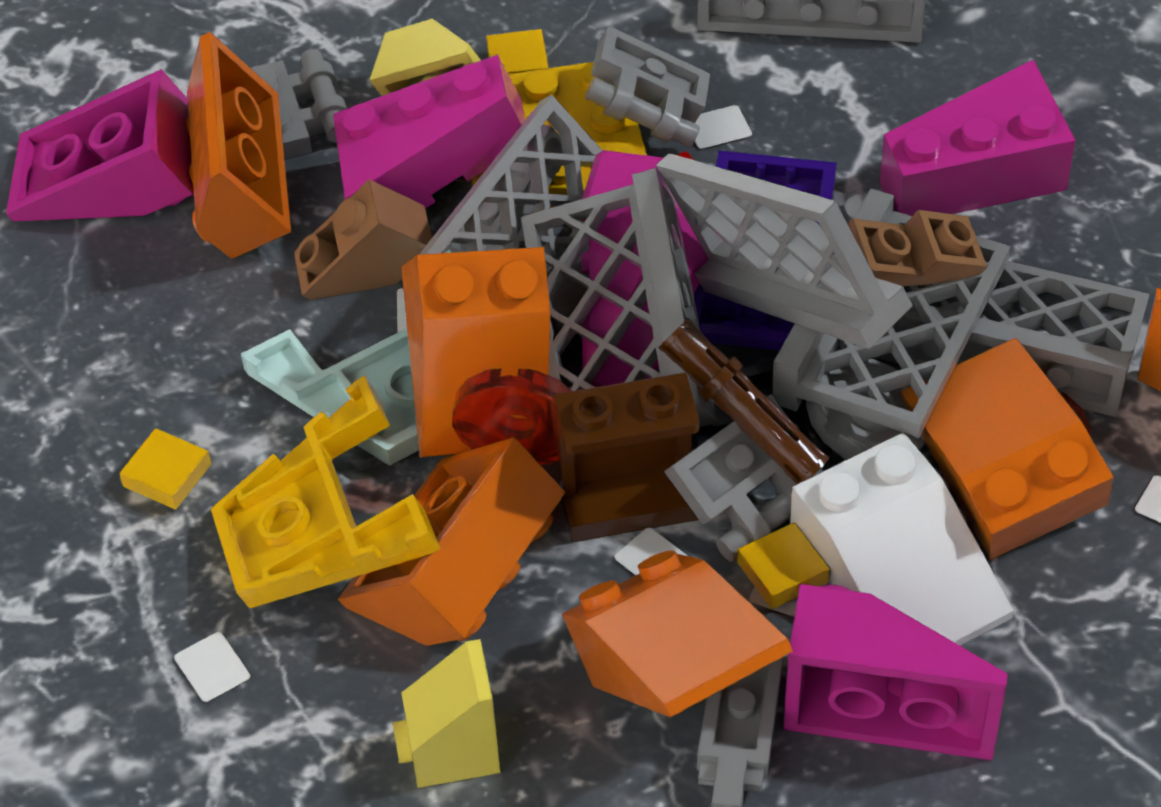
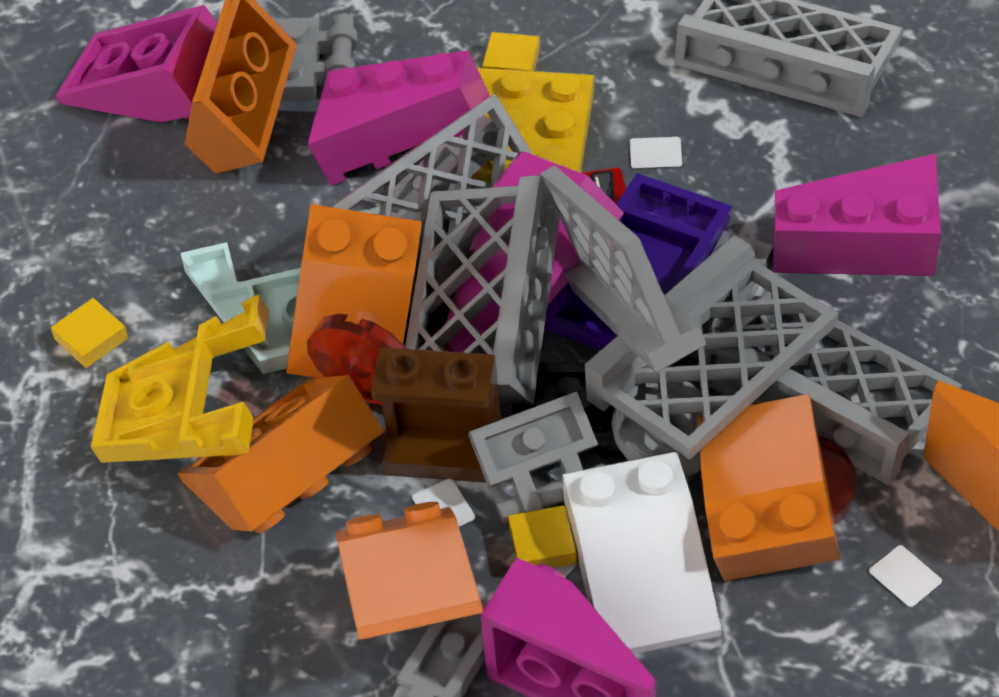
camera: 20 degrees right, 0 degrees up
(212, 666) = (60, 502): white sticker -> none
(362, 243) = (312, 176): medium nougat slope -> none
(418, 55) = (416, 36): light yellow slope -> none
(450, 721) = (212, 597): light yellow slope -> none
(655, 76) = (607, 96): light grey plate -> none
(743, 402) = (533, 373): reddish brown pin -> none
(921, 252) = (751, 300): medium nougat slope -> none

